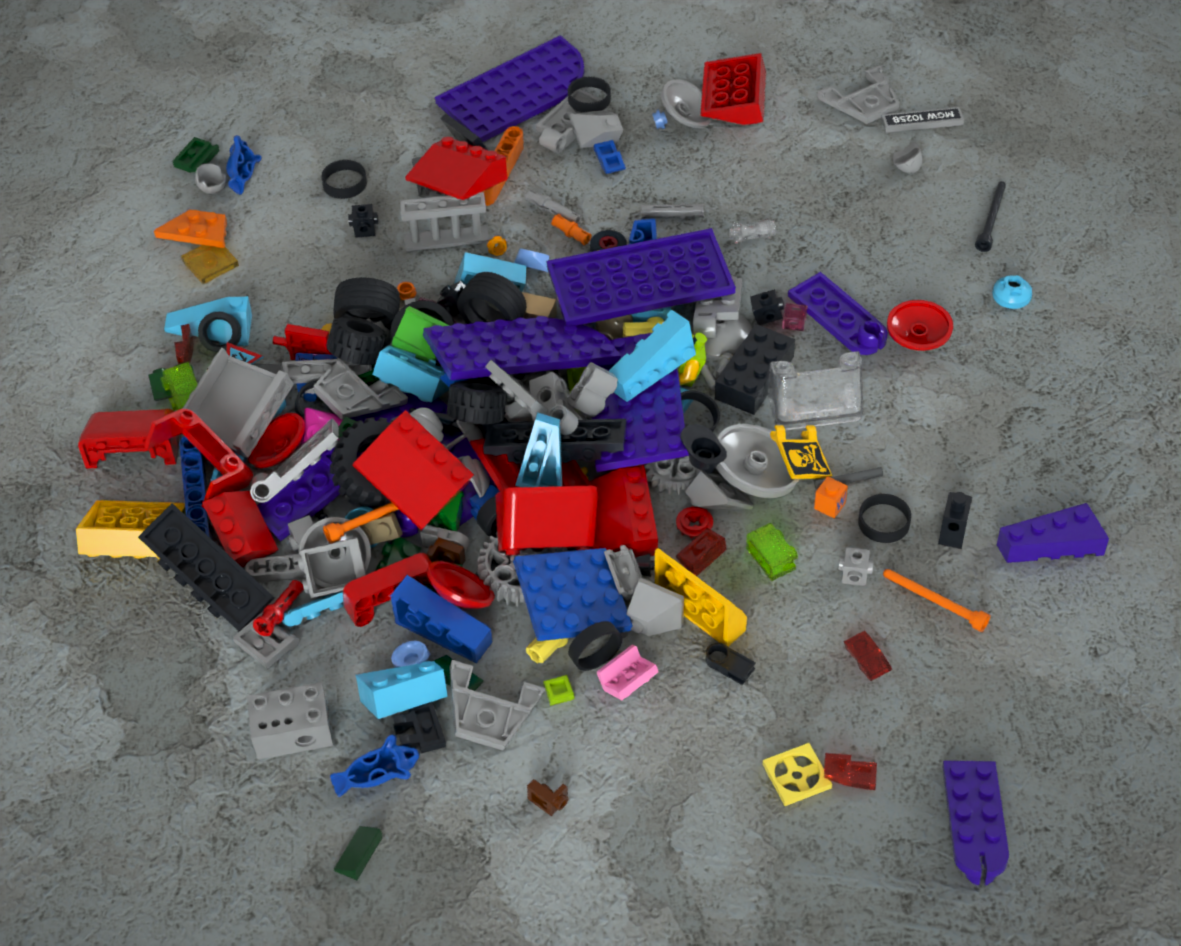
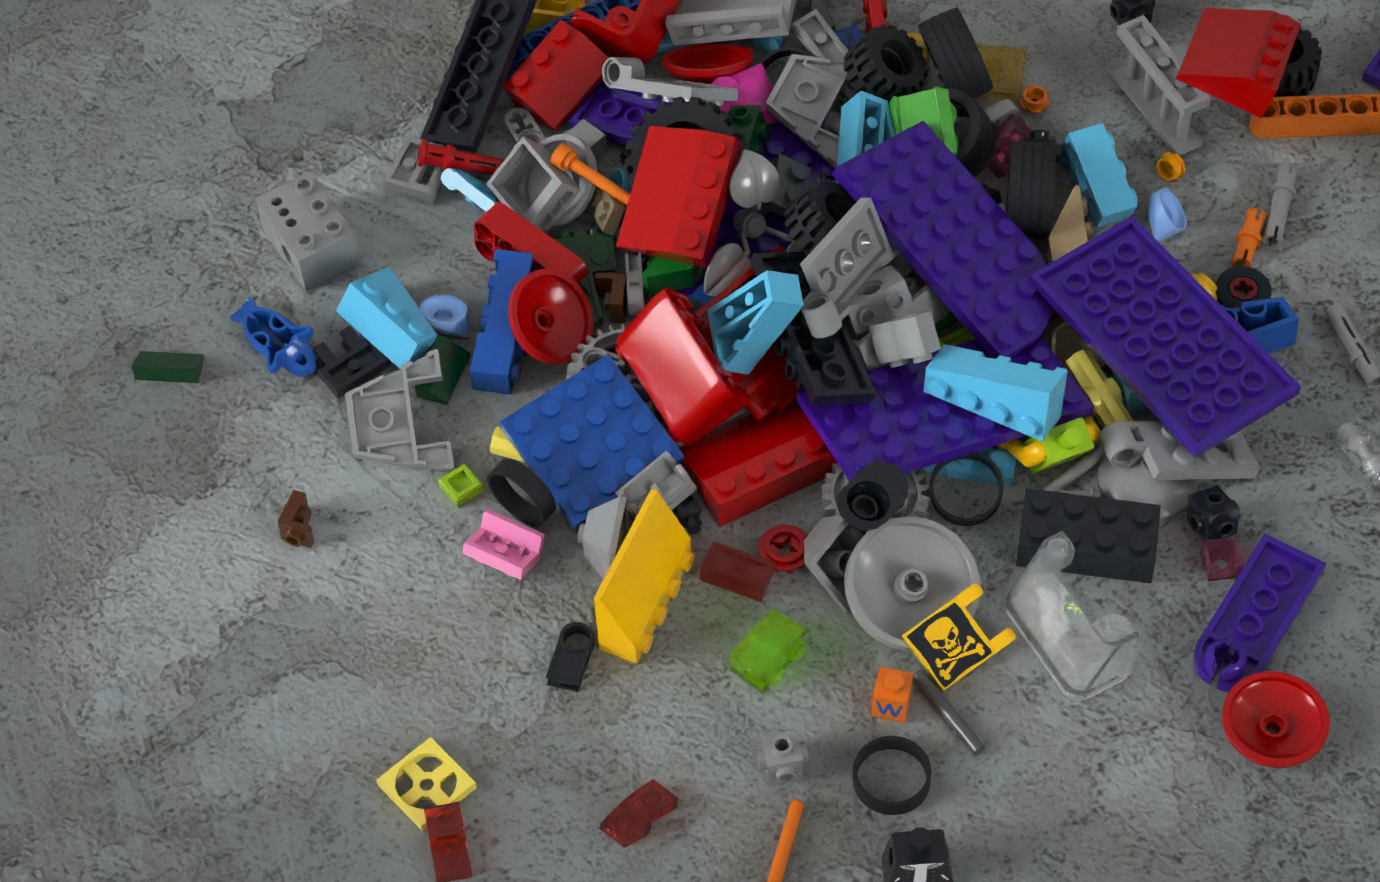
camera: 70 degrees right, 5 degrees up
(461, 133) = (1324, 56): black tile -> none

